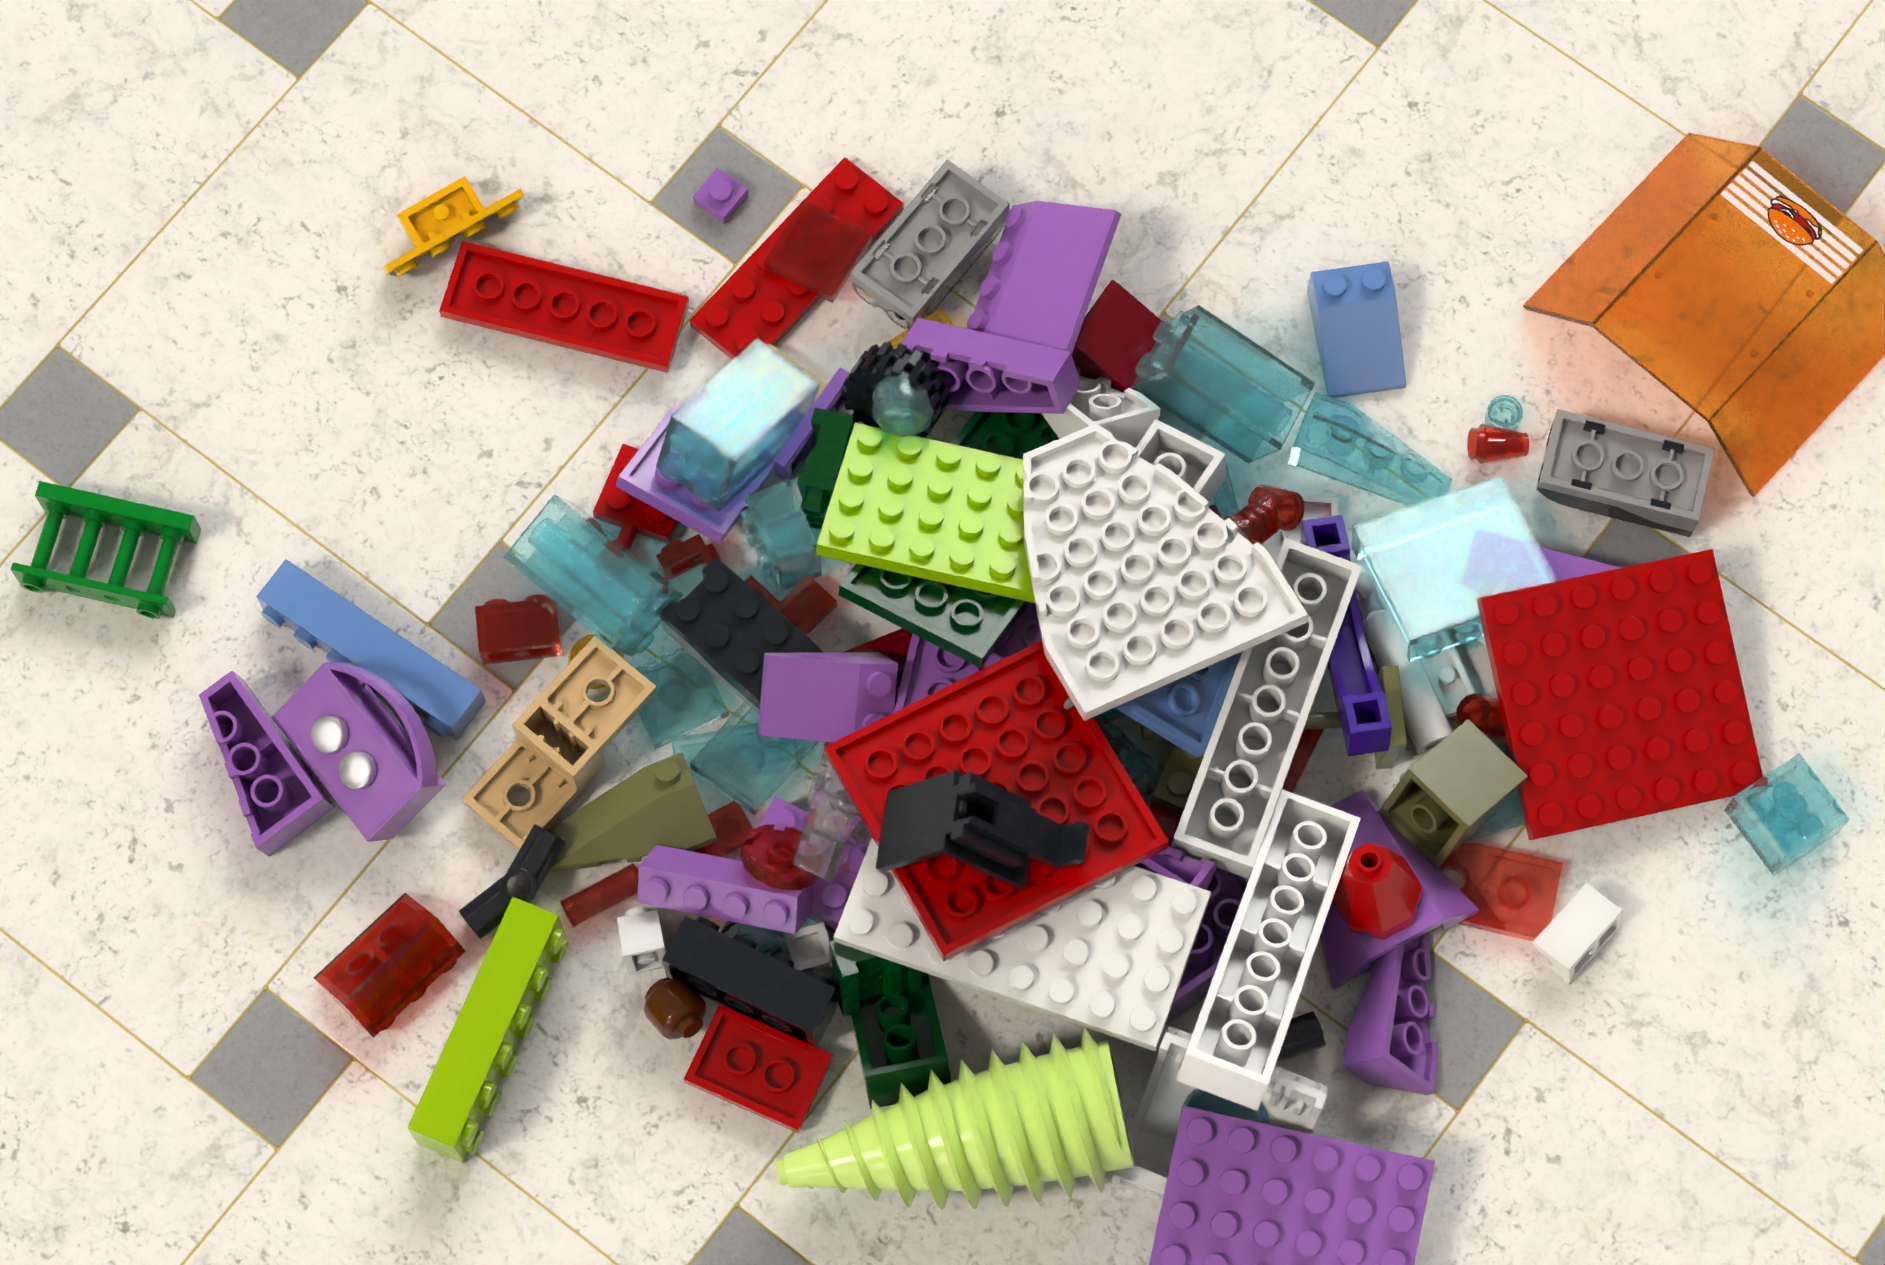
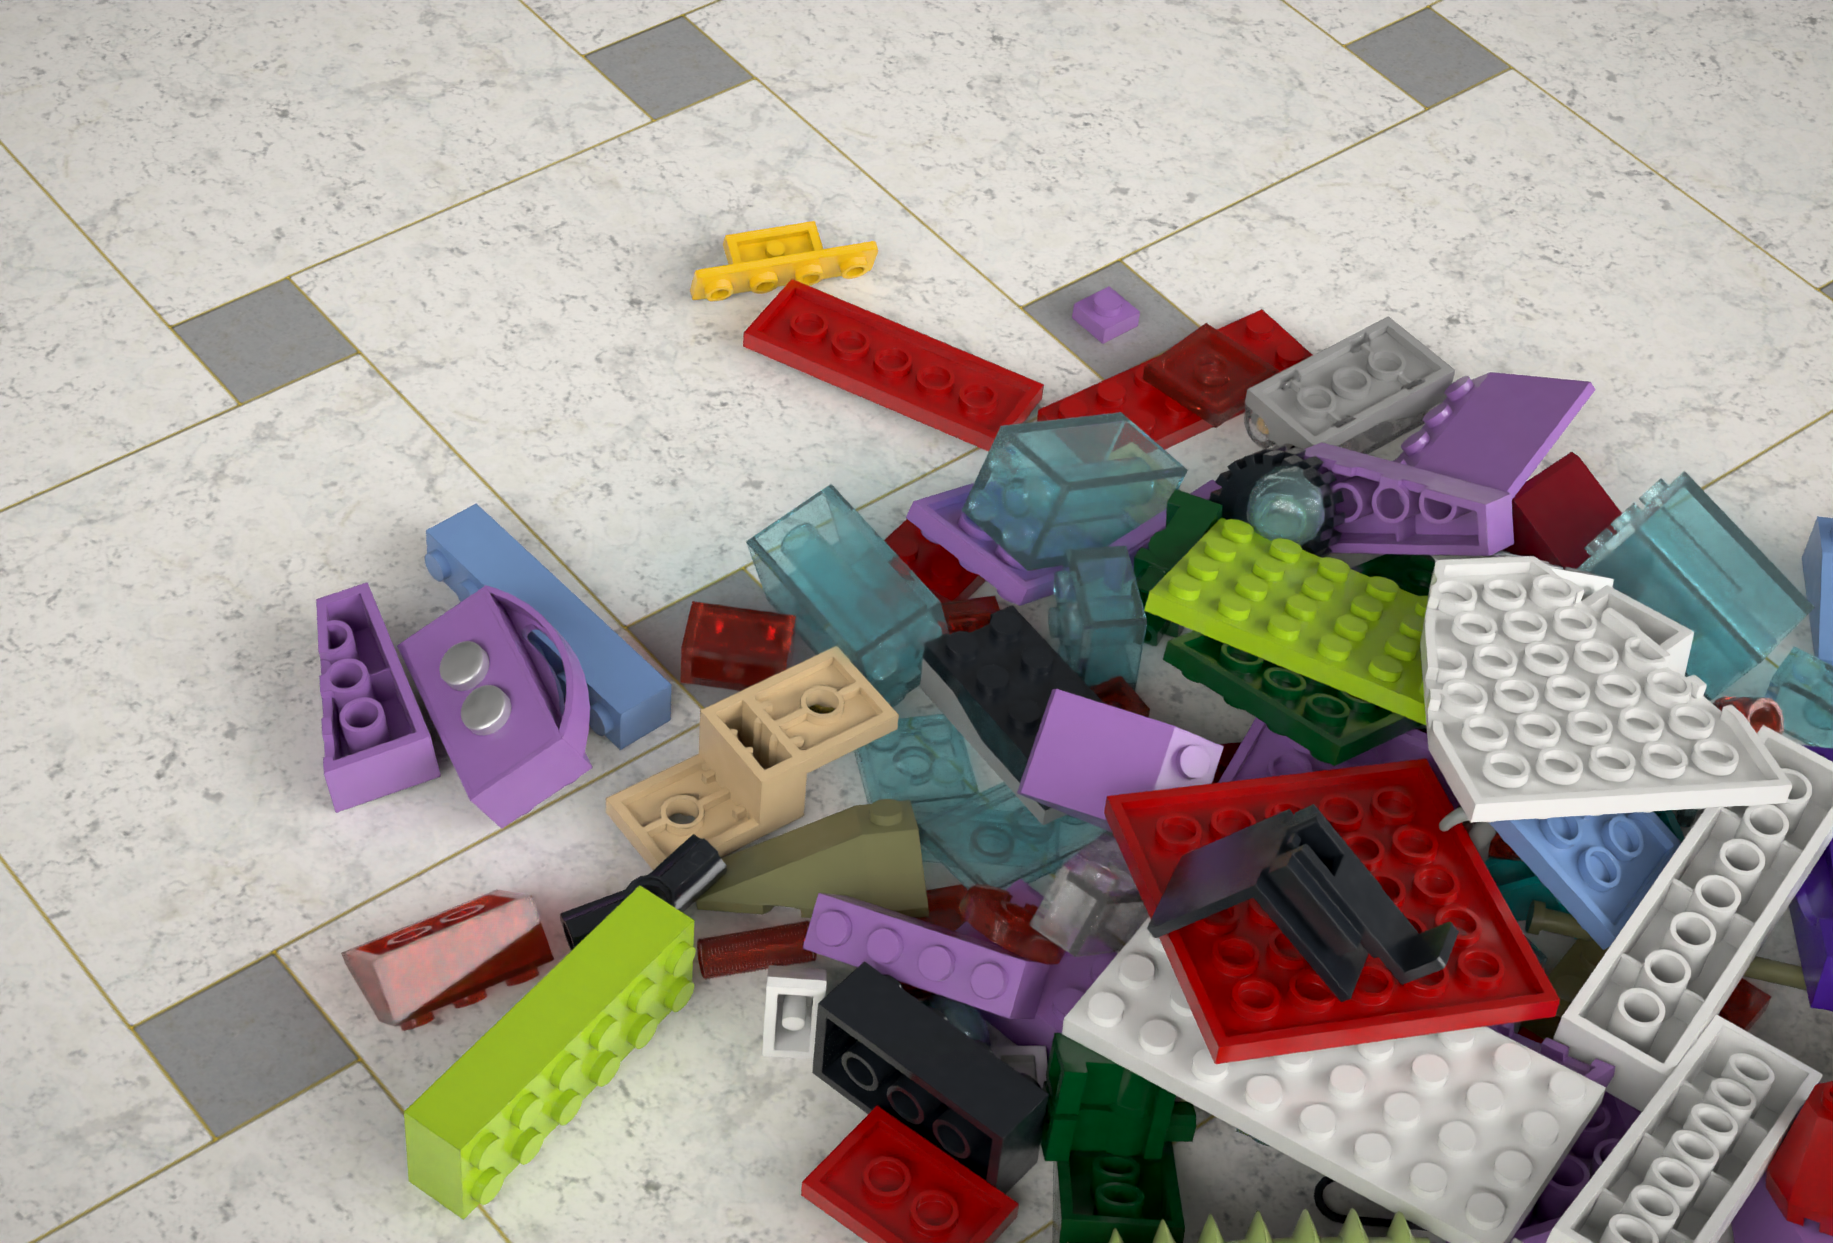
camera: 10 degrees right, 25 degrees down
(97, 512) = (274, 420): green fence -> none
(674, 1008) = (814, 1097): reddish brown head -> none

